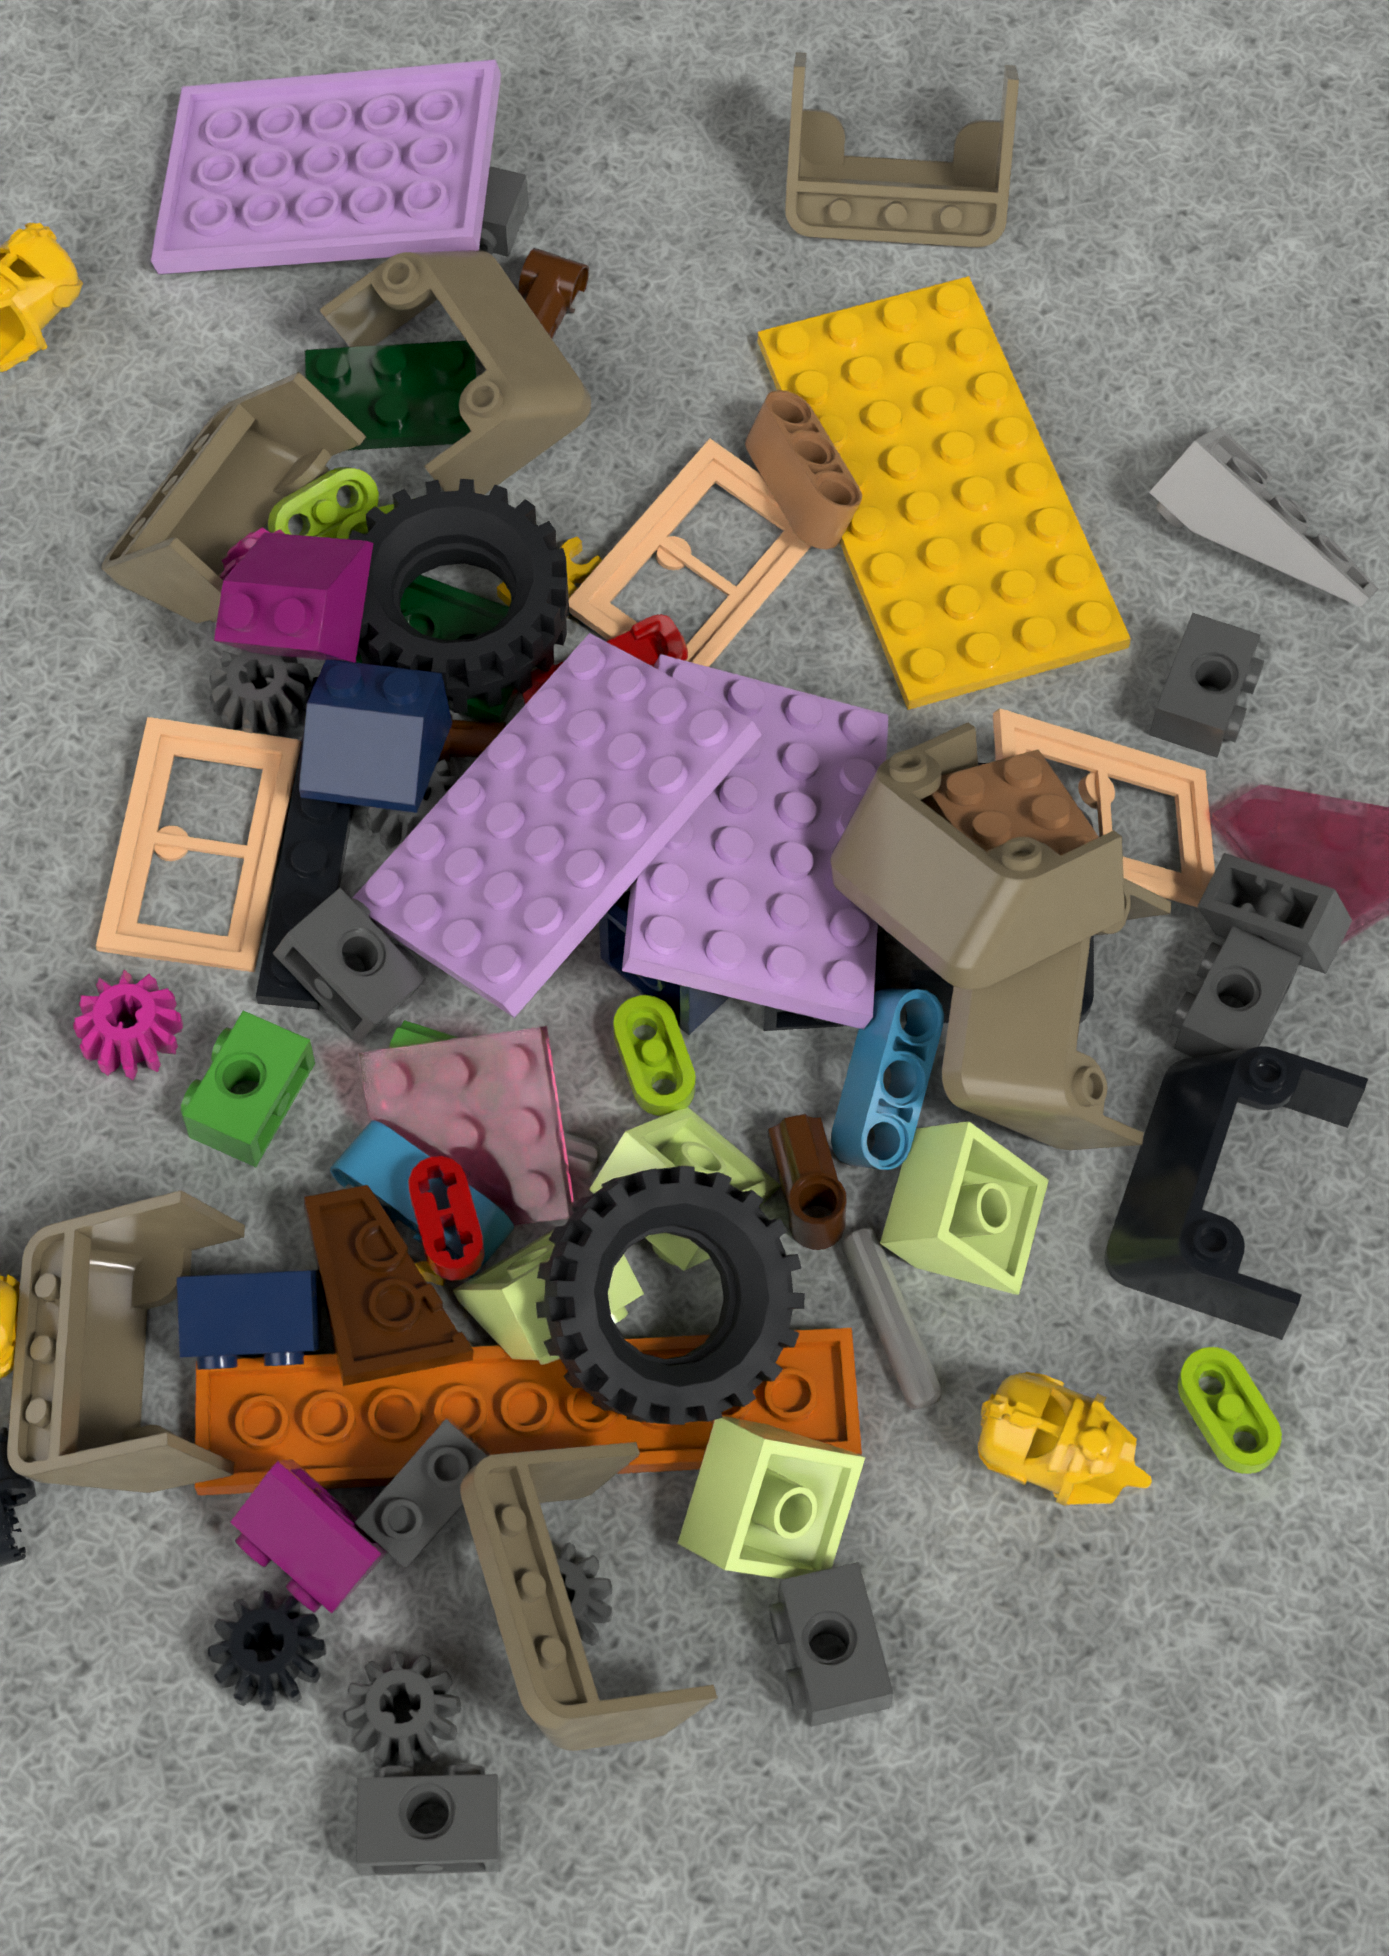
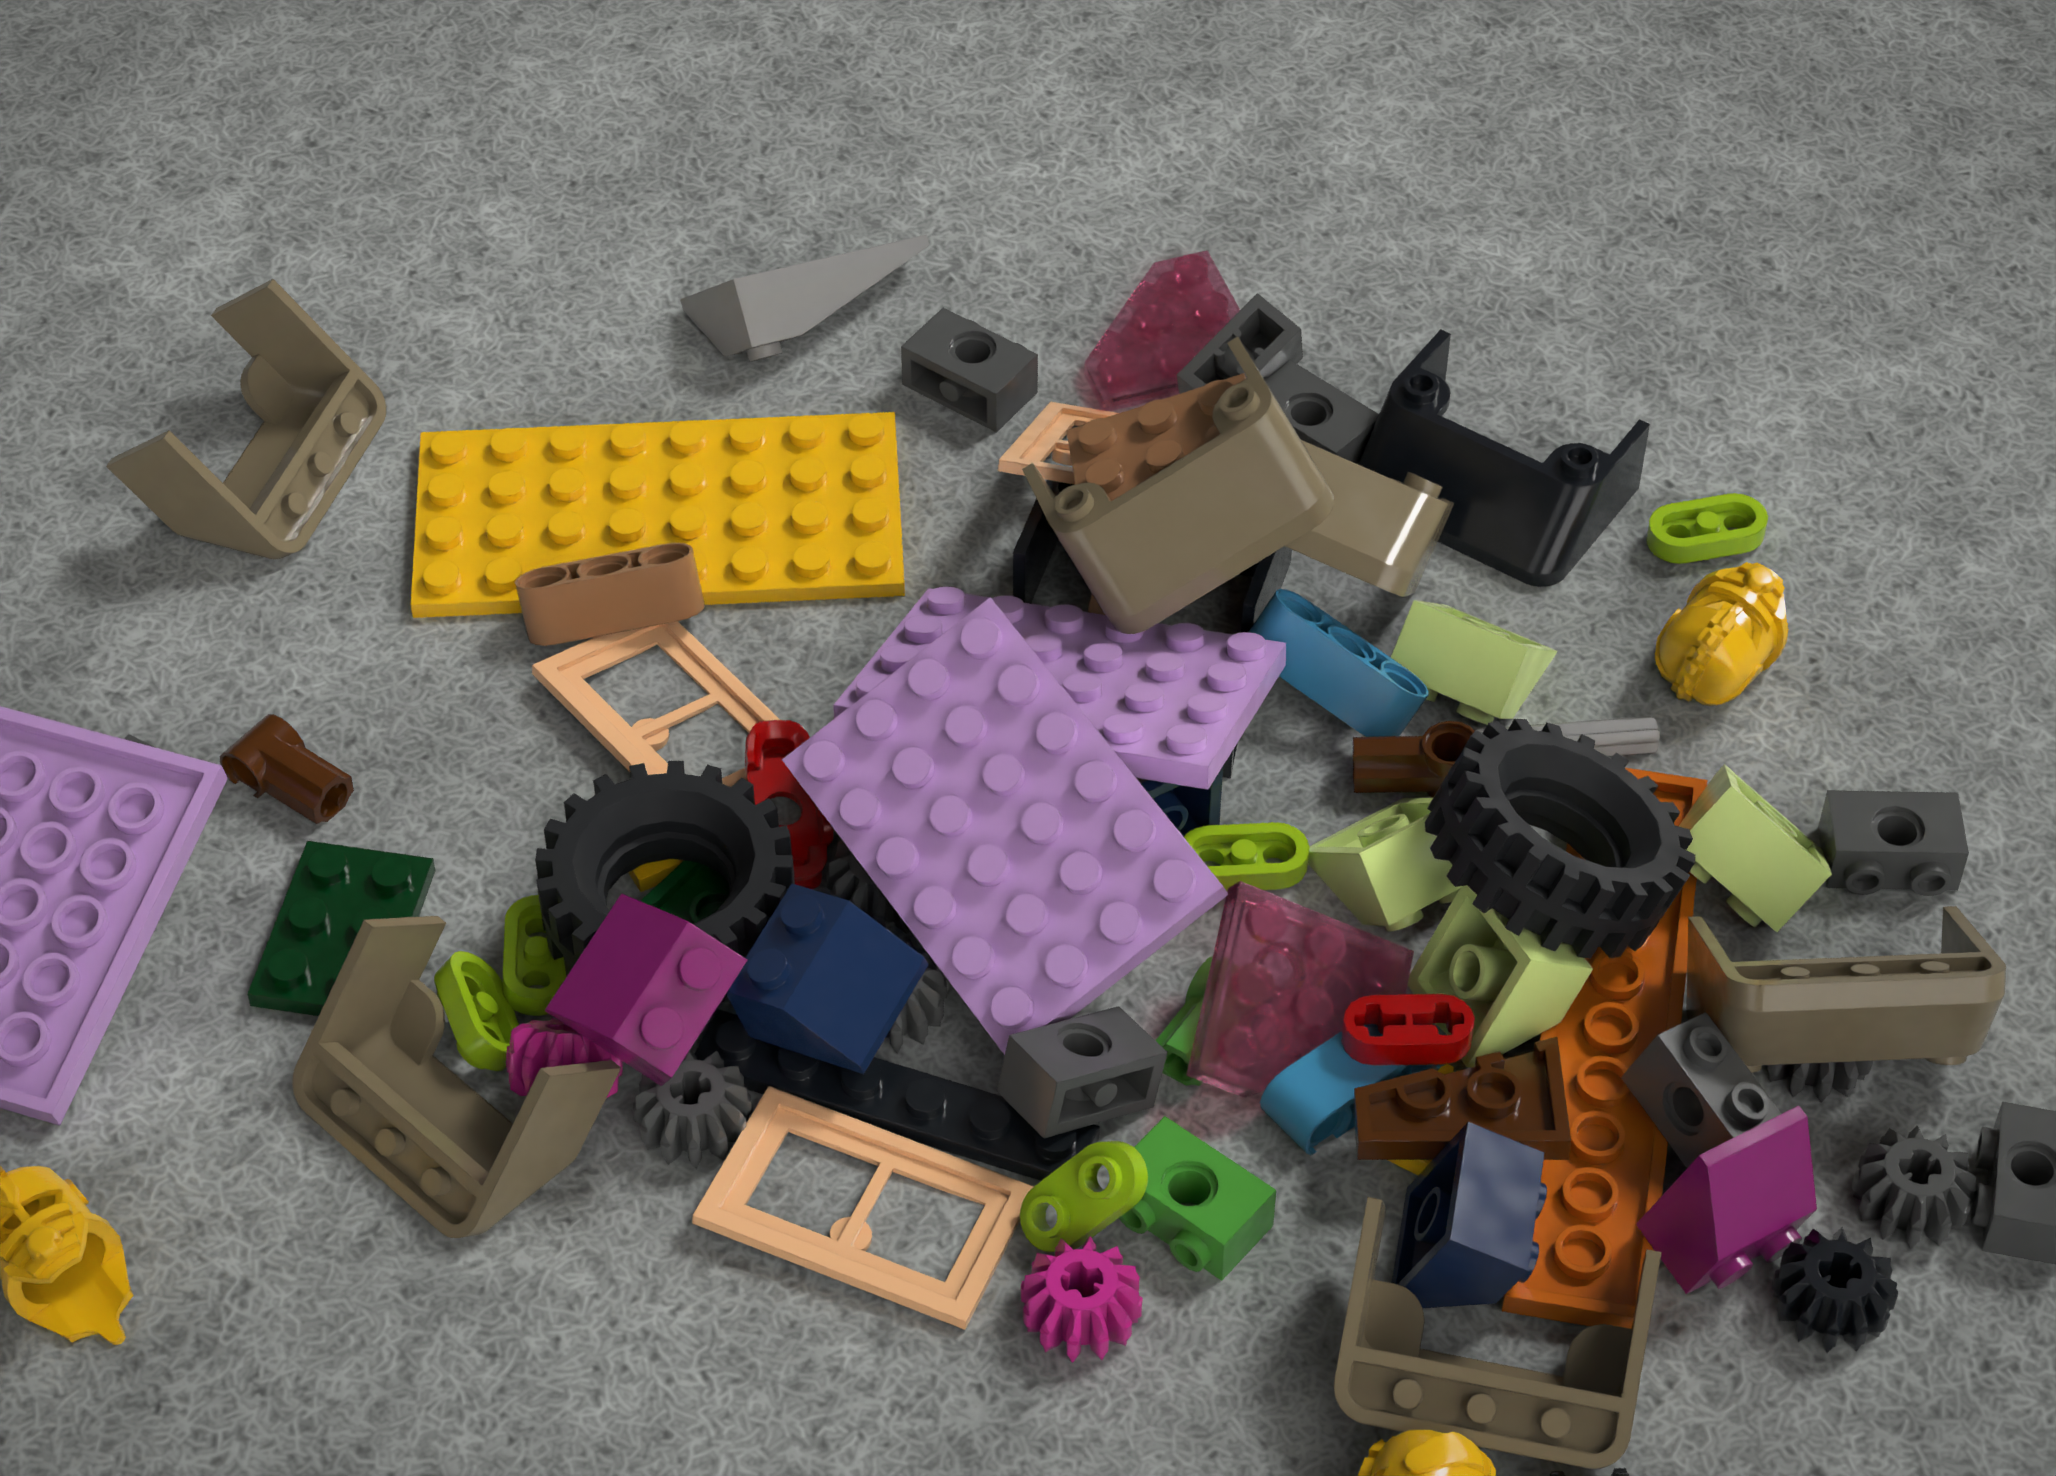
camera: 75 degrees left, 15 degrees down
(219, 997) = (1079, 1200): none -> lime plate
(528, 388) = (273, 798): dark tan windscreen -> none

